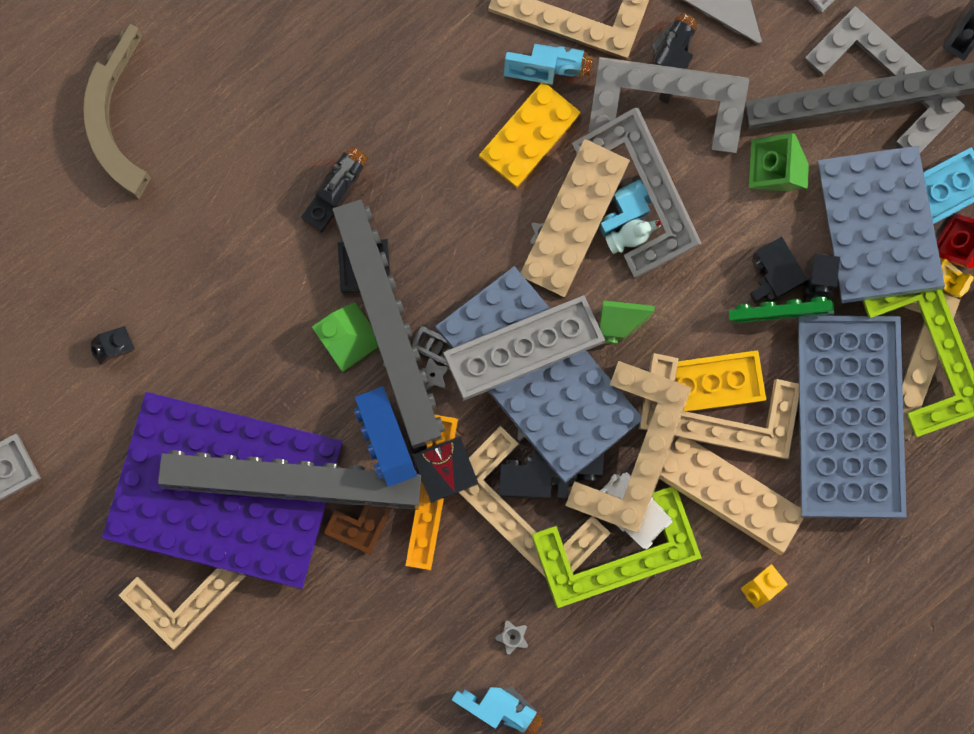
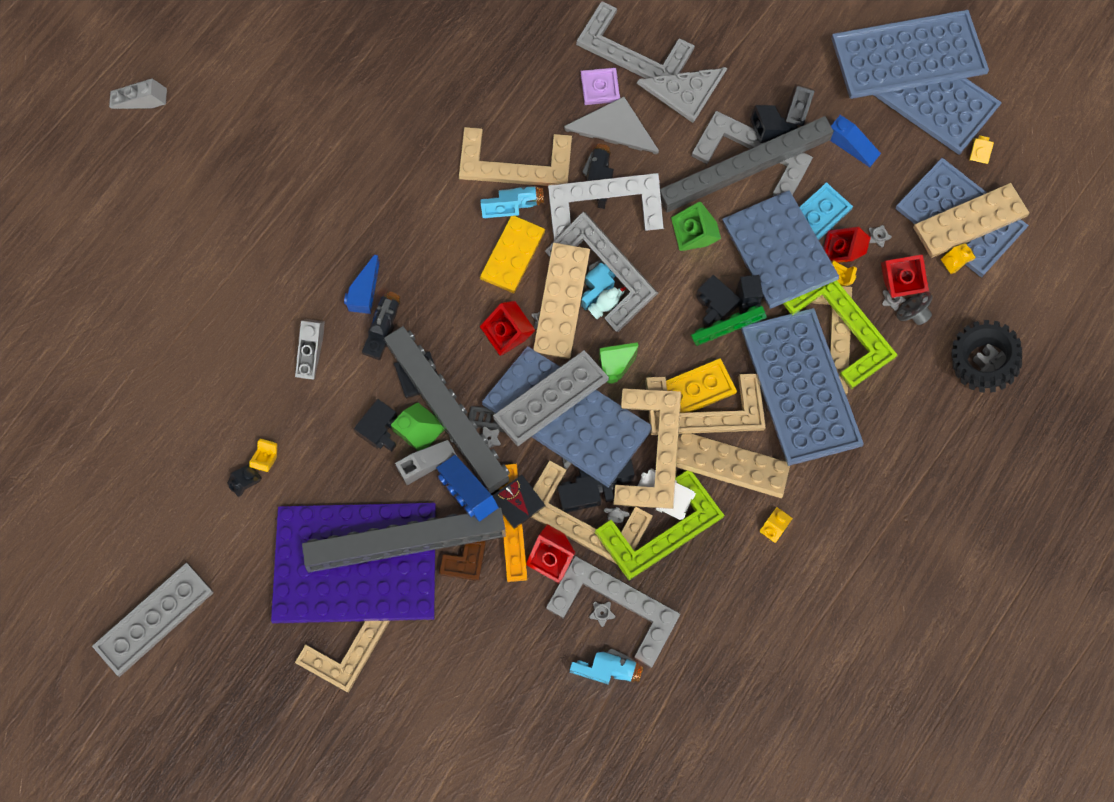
camera: 15 degrees left, 10 degrees down
(96, 115) = (217, 351): dark tan arch -> none
(144, 322) = (264, 456): none -> yellow bracket
(235, 193) = (309, 348): none -> light grey slope
(293, 319) = (375, 426): none -> black hinge
(322, 134) = (363, 288): none -> blue slope
(343, 384) = (424, 461): none -> light grey slope
(470, 546) = (551, 554): none -> red slope
(495, 234) = (507, 327): none -> red slope
(564, 519) = (616, 514): none -> light grey plate
(584, 661) = (585, 574): none -> light grey plate
(919, 46) = (768, 123): none -> black hinge

